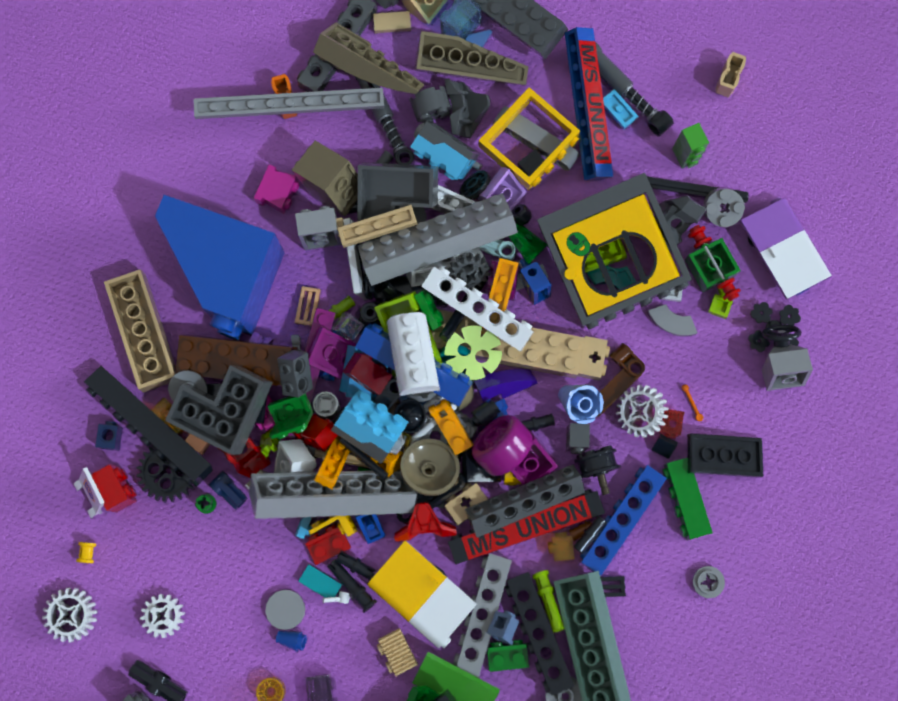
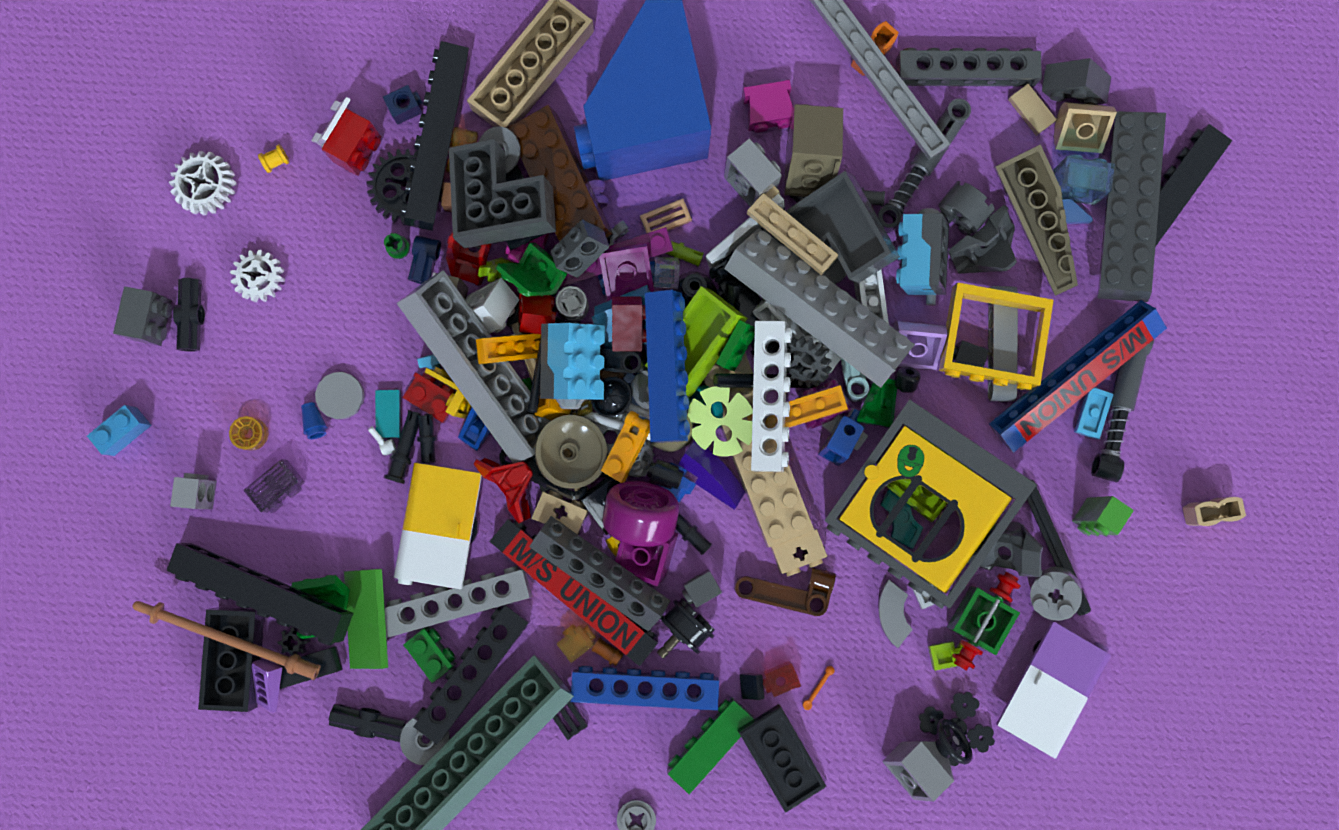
camera: 55 degrees right, 5 degrees up
(355, 56) = (966, 96): dark tan wedge -> none
(397, 652) = (364, 537): tan brick -> none
(412, 353) = (673, 358): white container -> none
(475, 184) = (907, 310): pearl dark grey wheel -> none
(503, 626) = (454, 631): sand blue brick -> none
(546, 591) = (519, 654): lime pin -> none
(581, 402) = (739, 569): light blue cone -> none
(590, 534) = (606, 664): black pin -> none
(629, 420) = (769, 659): white gear -> none

